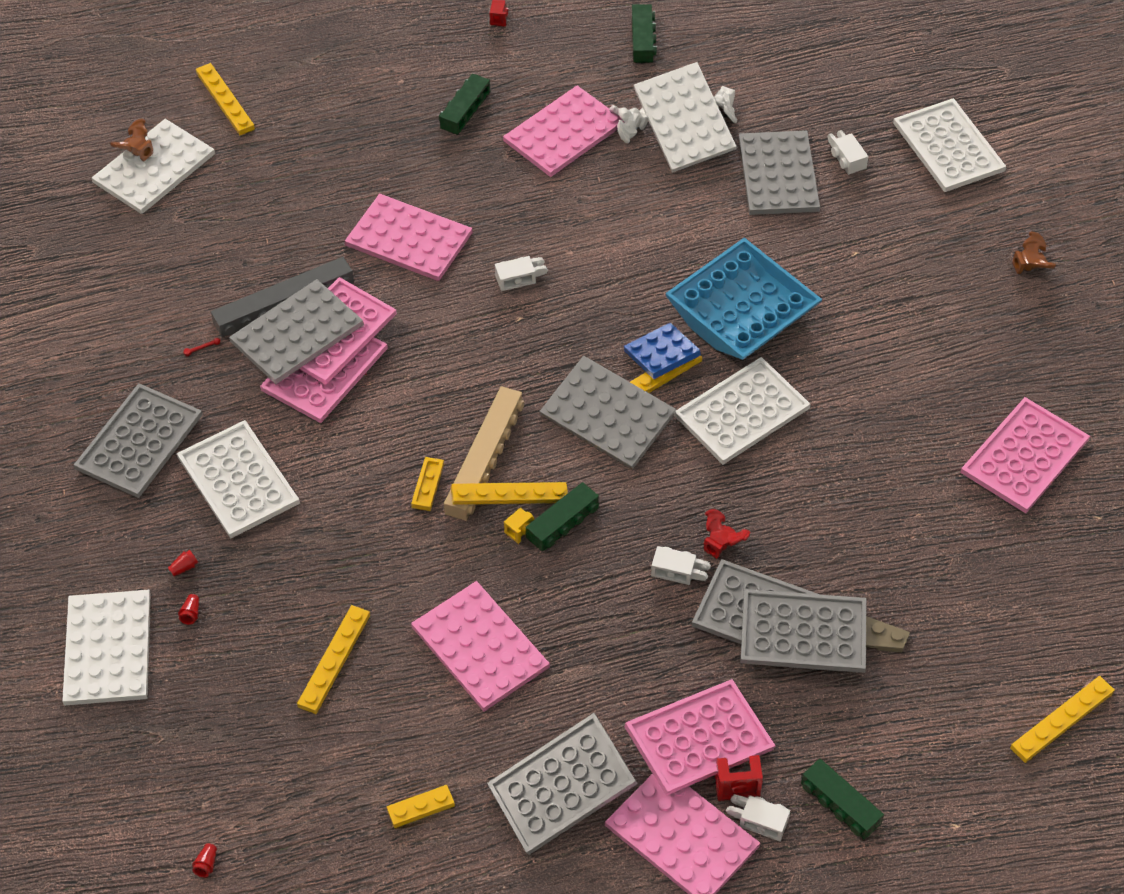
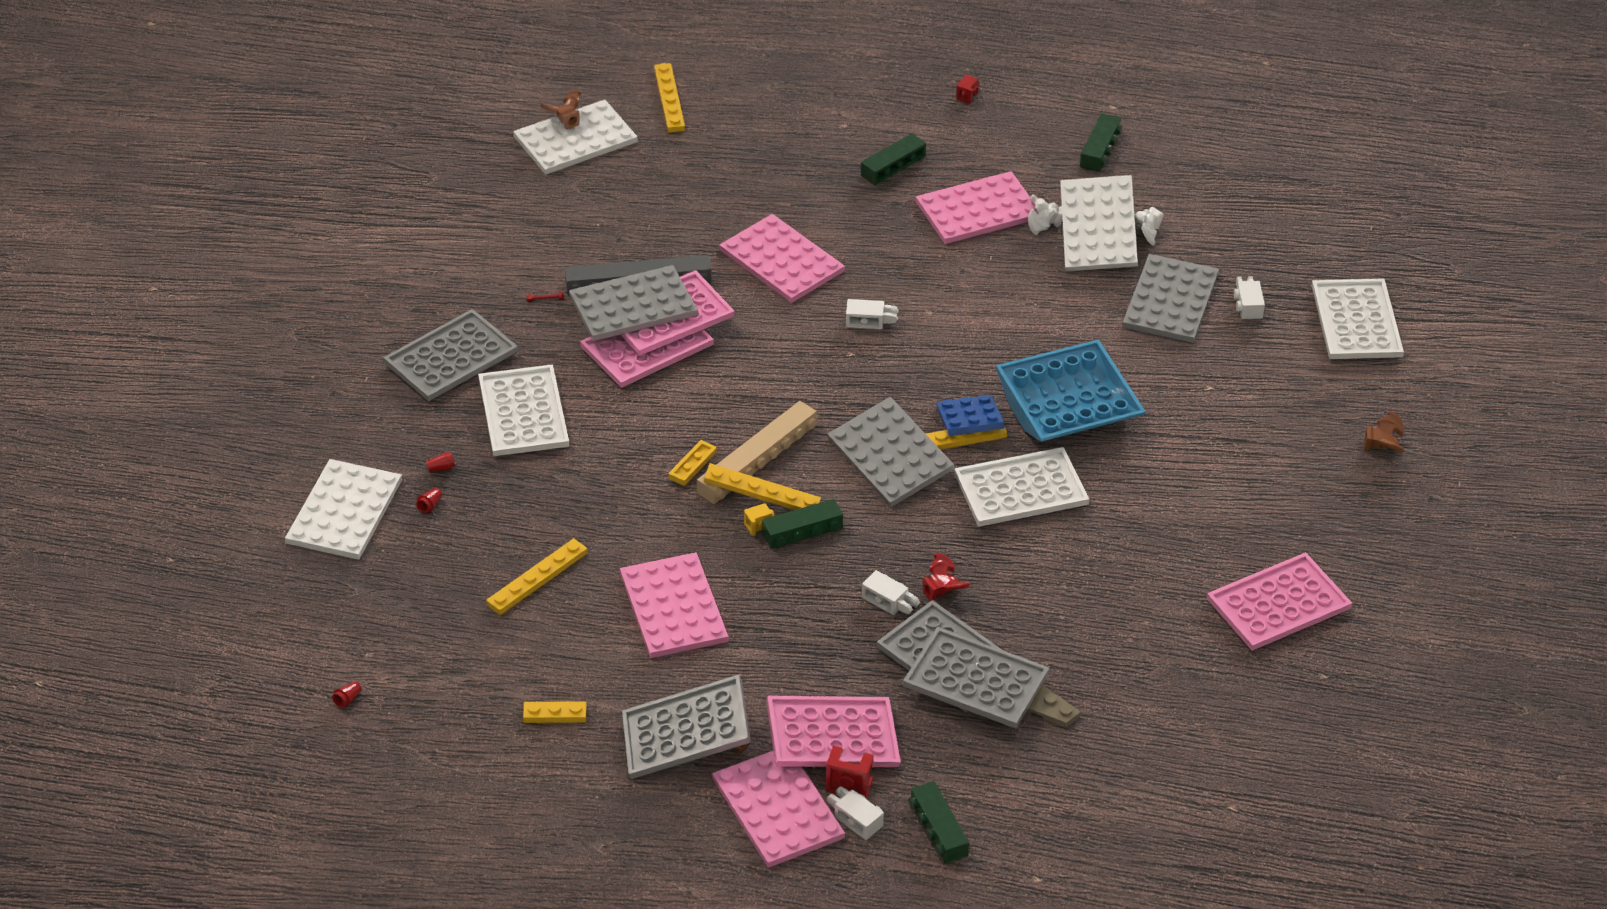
camera: 20 degrees right, 10 degrees down
(1062, 719) = (1189, 825): yellow plate -> none

